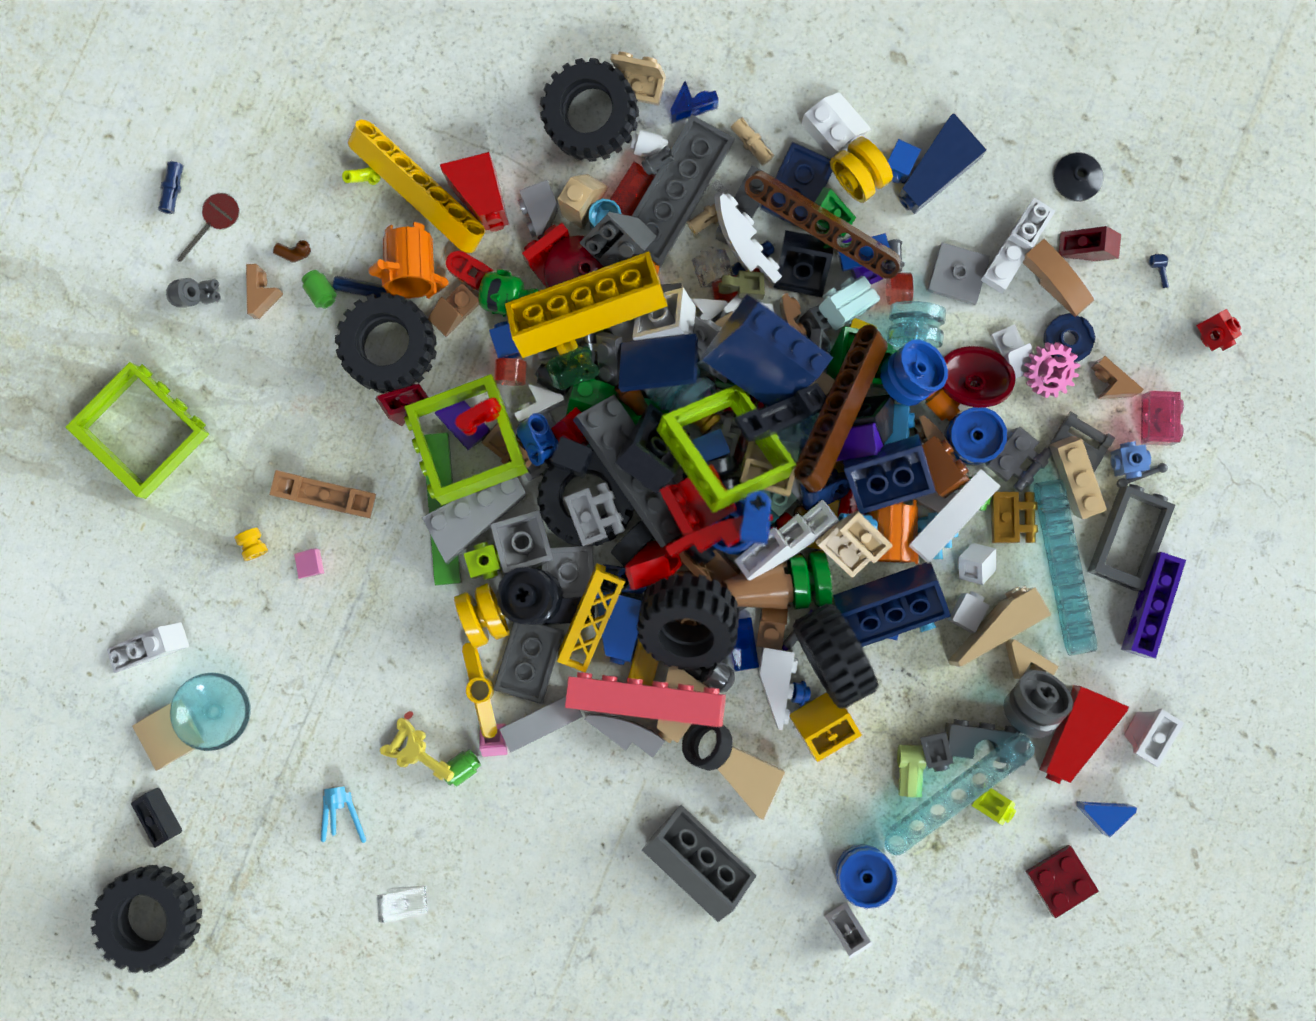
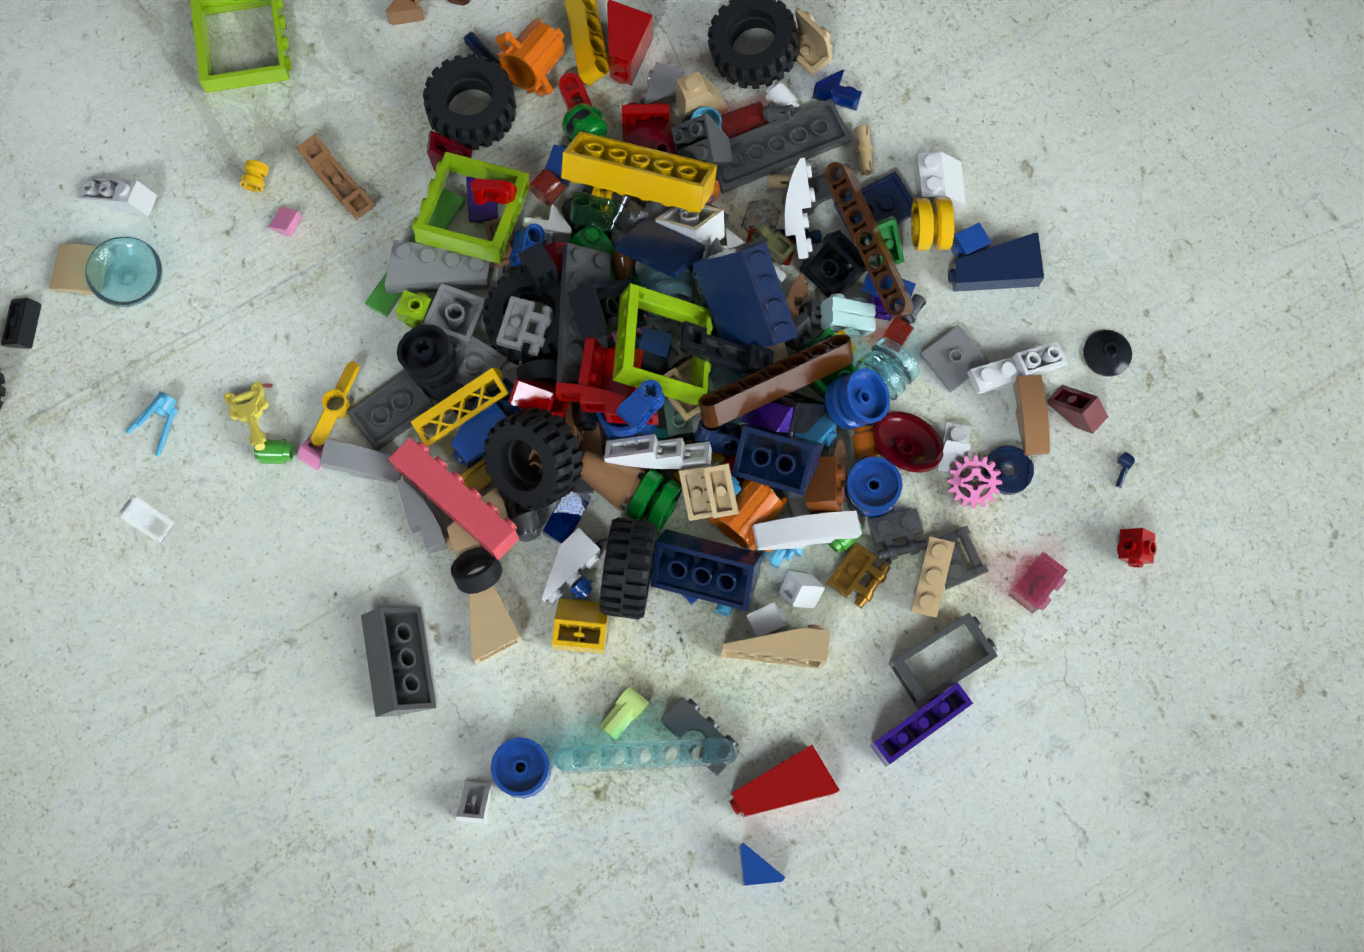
camera: 30 degrees right, 10 degrees down
(318, 289) = (452, 32): bright green brick -> none
(453, 310) = (538, 116): medium nougat slope -> none
(481, 616) = (378, 345): yellow wheel -> none
(707, 423) = (667, 325): pearl gold wheel -> none
(771, 628) = (598, 521): medium nougat slope -> none
(937, 751) = (654, 709): dark grey bracket -> none
(995, 806) = (670, 793): neon yellow bracket -> none
(1021, 657) = (784, 689): tan slope -> none
(1037, 704) = (764, 730): dark grey wheel -> none
(1062, 881) = (680, 899): dark red plate -> none
(1065, 567) = (871, 645): clear light blue beam -> none
(1120, 383) = (1023, 532): medium nougat slope -> none
(1130, 460) = (983, 604): medium blue brick -> none
(1153, 734) = (845, 832): white slope -> none
(1162, 467) = (1010, 624): dark grey hinge -> none

